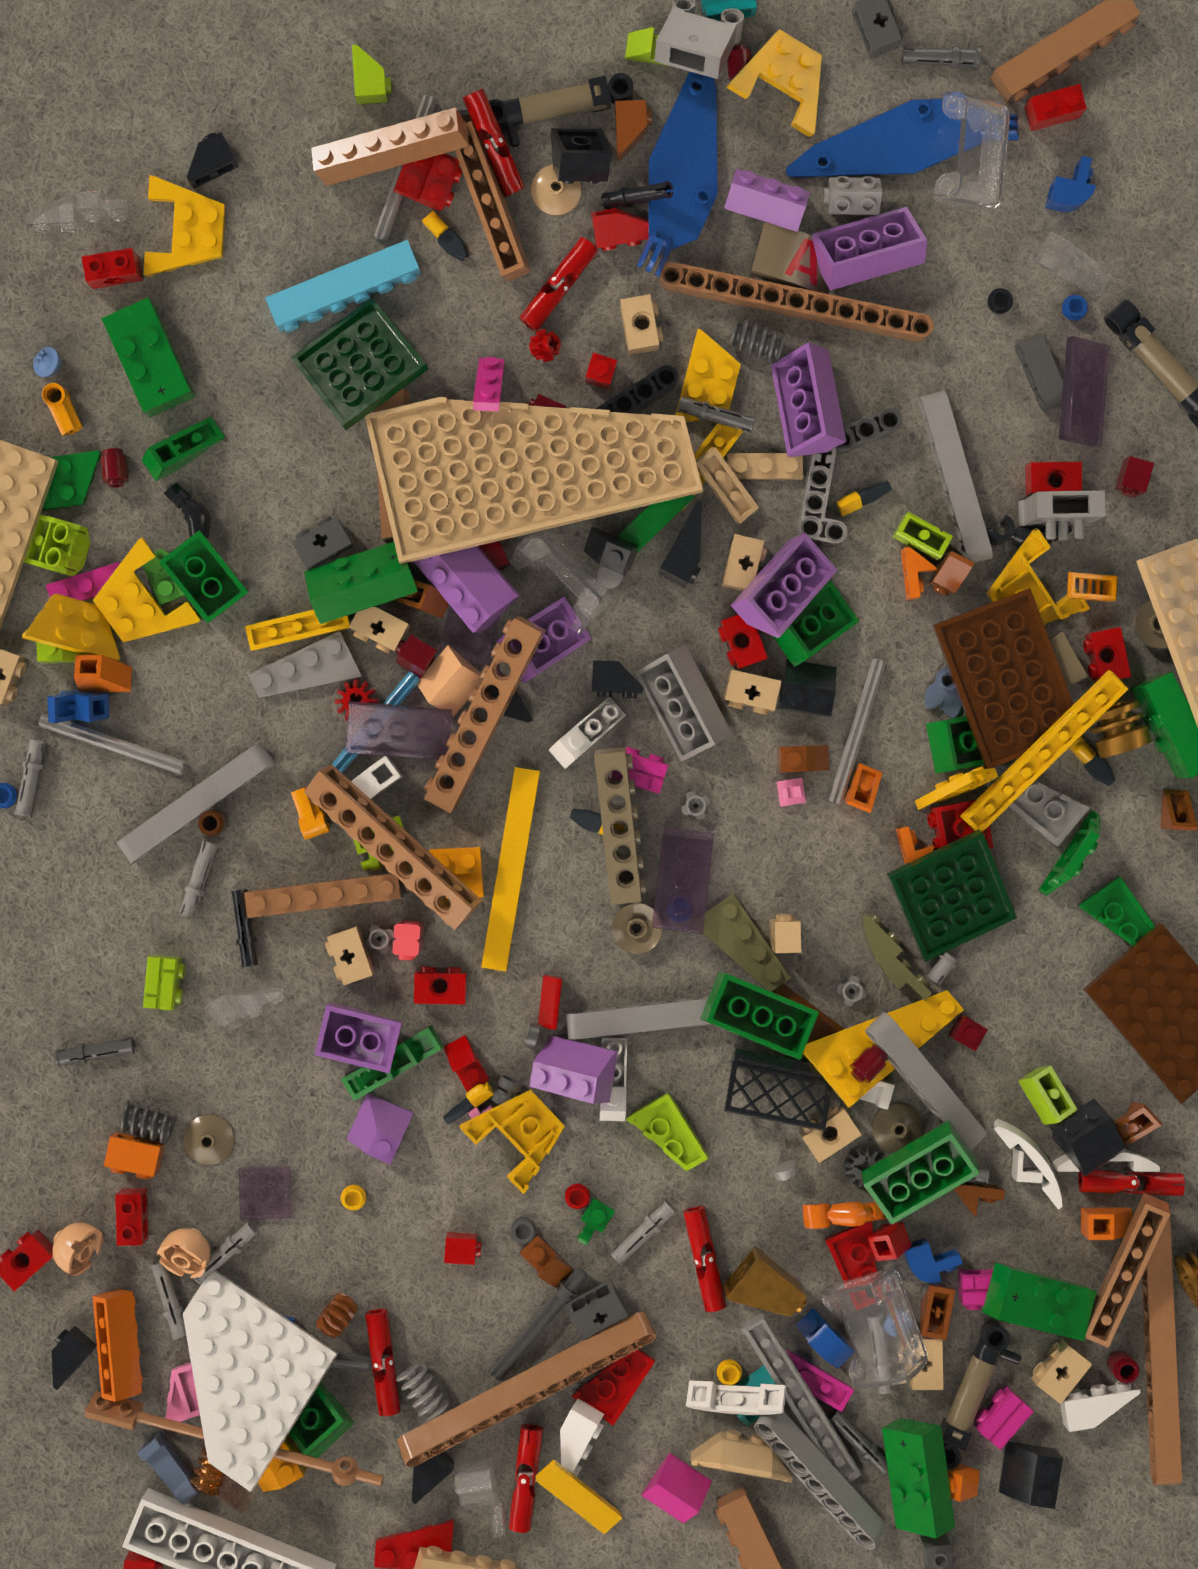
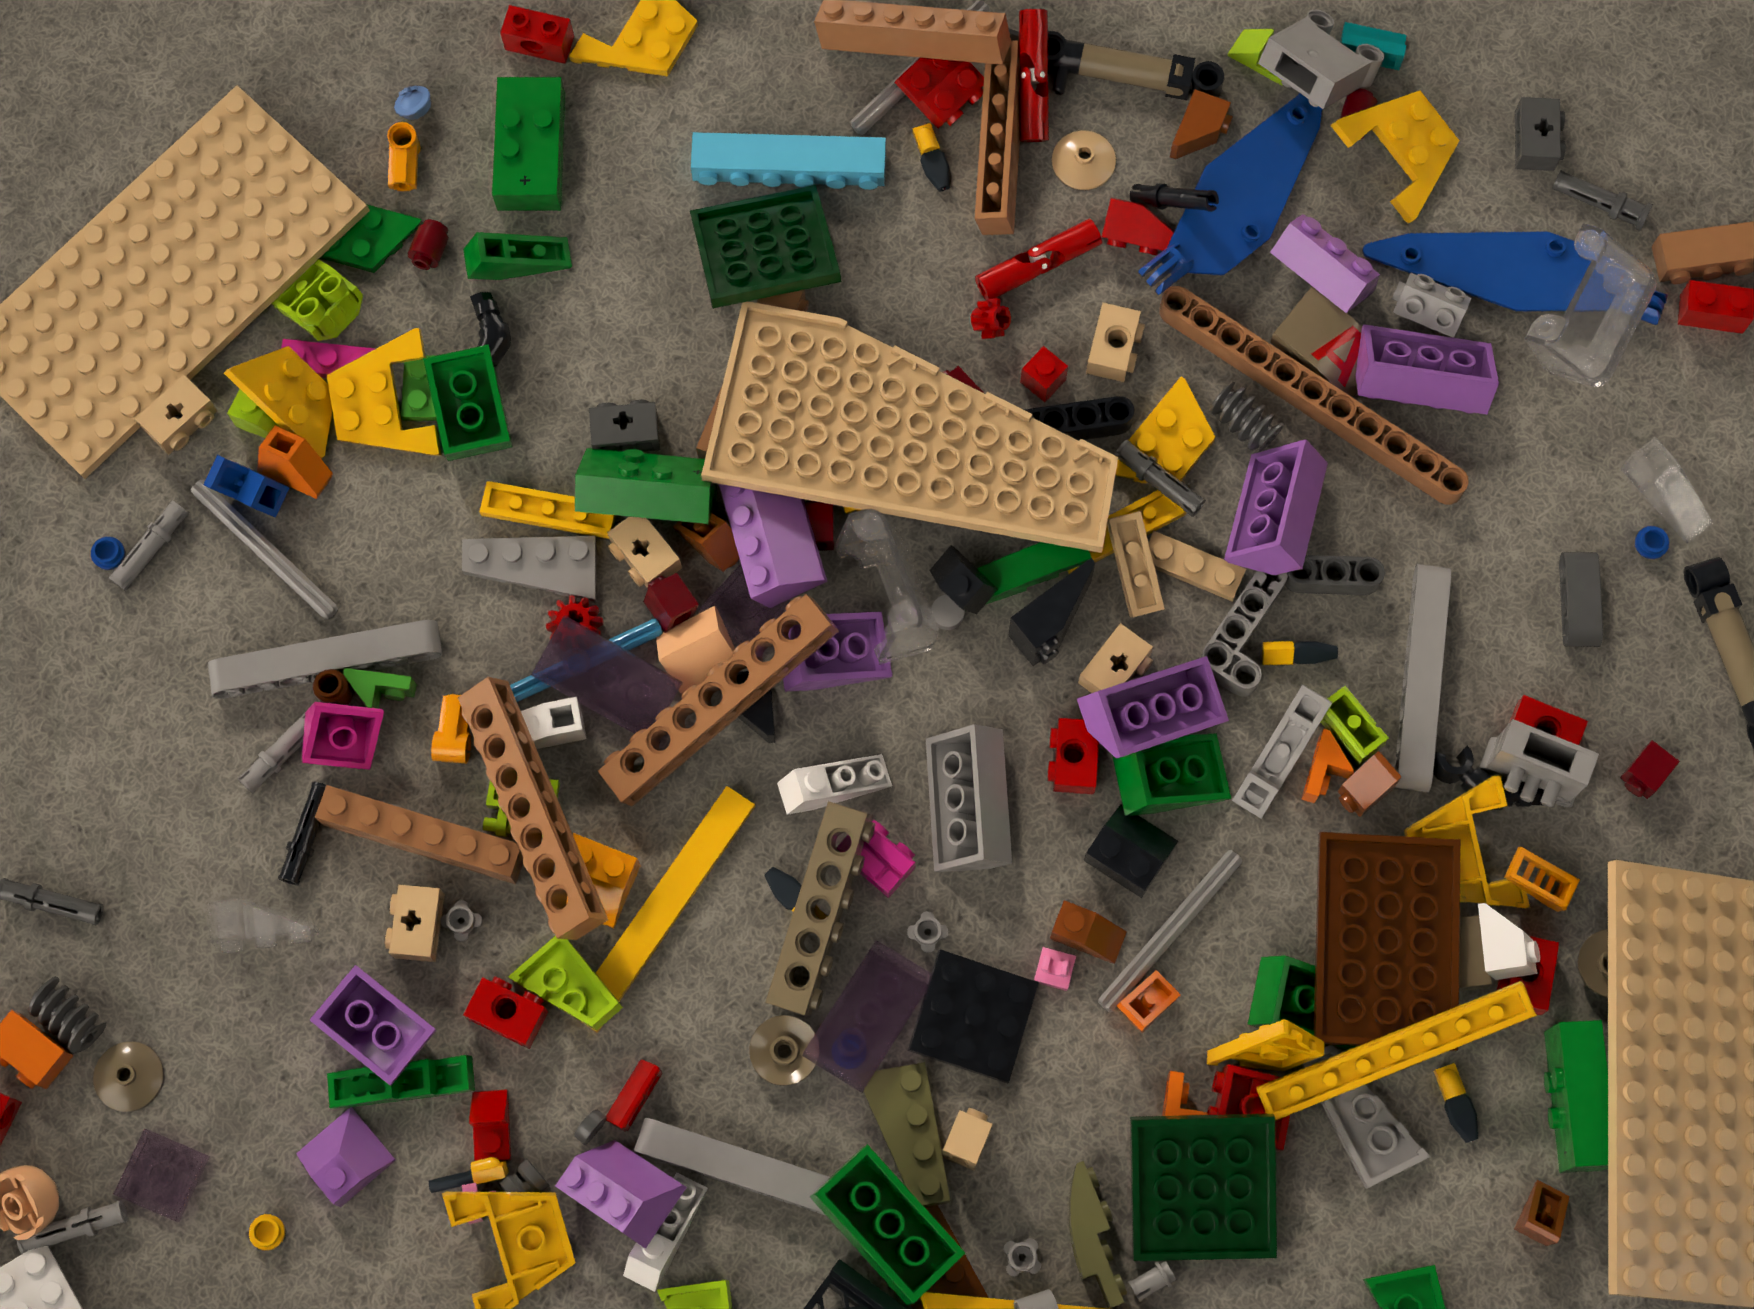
camera: 25 degrees right, 15 degrees down
(163, 982) = (175, 853): lime brick -> none
(235, 853) = (341, 735): none -> dark pink slope
(237, 810) = (371, 684): none -> bright green slope
(408, 939) = (495, 931): coral brick -> none
(474, 950) = (567, 982): none -> lime wing
(488, 384) = (904, 329): dark pink plate -> none
(580, 155) = (1127, 132): black slope -> none
(611, 678) = (895, 731): black slope -> none
(751, 849) = (973, 1016): none -> black plate
(766, 688) = (1052, 805): tan brick -> none
(882, 575) = (1282, 751): none -> light grey slope
(943, 695) = (1297, 932): sand blue plate -> none
(1000, 301) = (1562, 497): black plate -> none
(1069, 194) = (1699, 412): blue brick -> none
(1071, 859) = (1377, 1212): green wing -> none
(1084, 392) = (1624, 643): tile -> none
(1087, 646) = (1505, 946): none -> white slope
(1120, 730) = (1507, 1070): pearl gold wheel -> none

